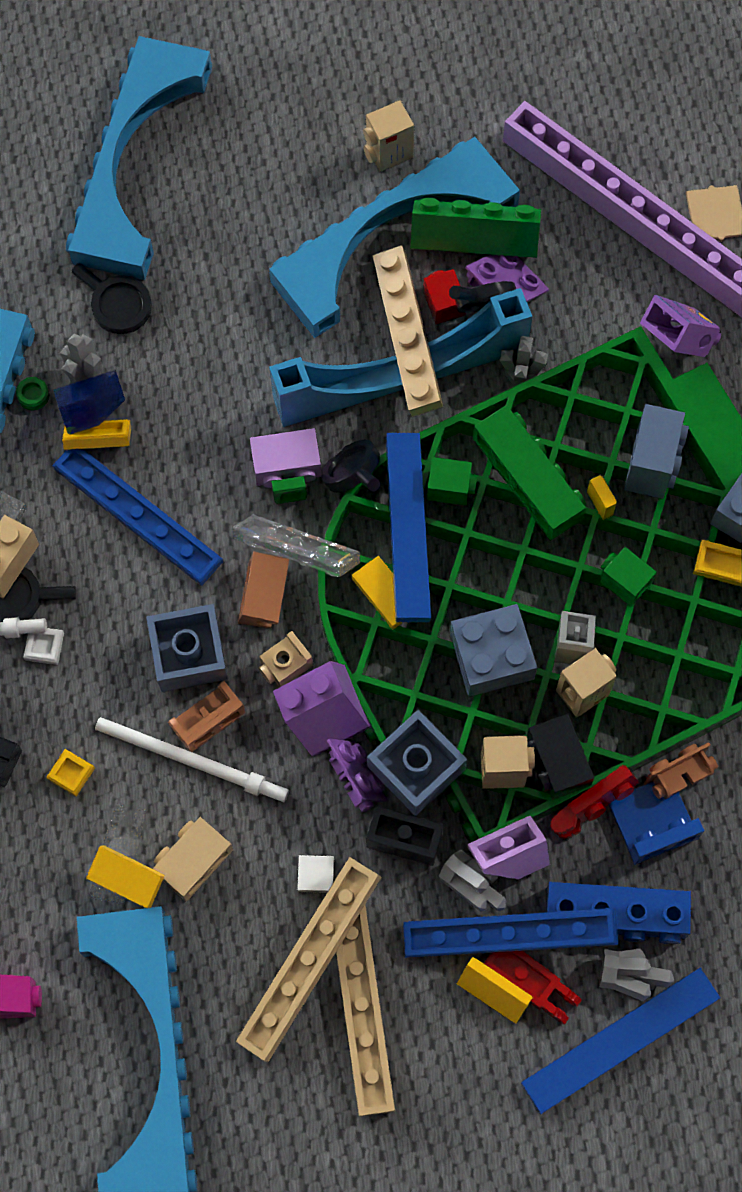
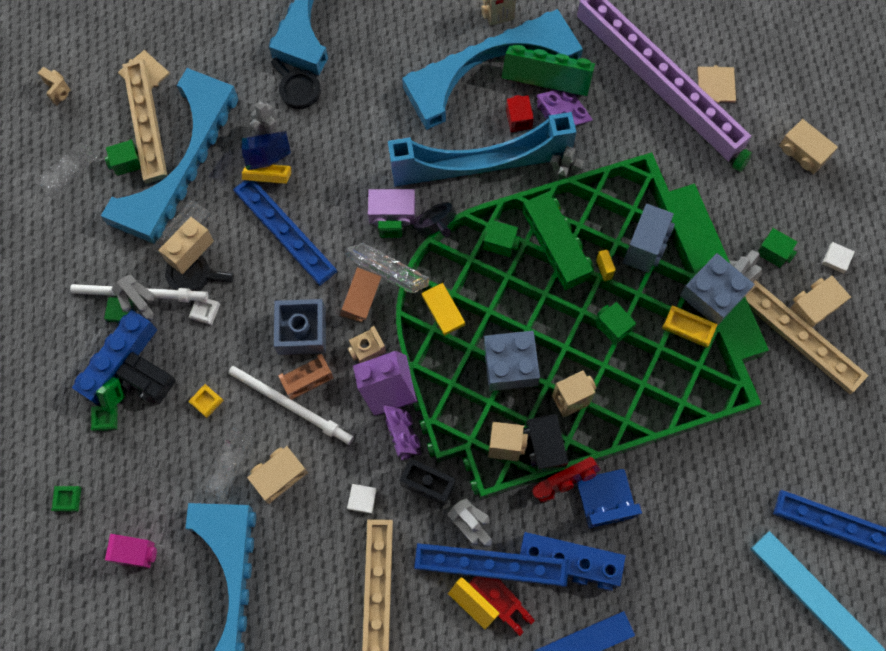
camera: 10 degrees right, 0 degrees up
(32, 393) = (229, 139): green tile -> none
(125, 876) = (227, 480): yellow tile -> none
(308, 959) = (344, 560): tan plate -> none
(407, 331) = (489, 133): tan plate -> none
(408, 528) = (466, 267): blue tile -> none
(416, 762) = (443, 432): sand blue brick -> none
(475, 298) = (537, 115): black piece -> none
(512, 850) = (501, 505): lavender slope -> none
(574, 637) = (570, 360): light grey slope -> none
(631, 973) = (573, 607): light grey rock -> none
(668, 776) = (640, 462): nougat hinge -> none
(692, 336) = (690, 161): medium lavender torso -> none

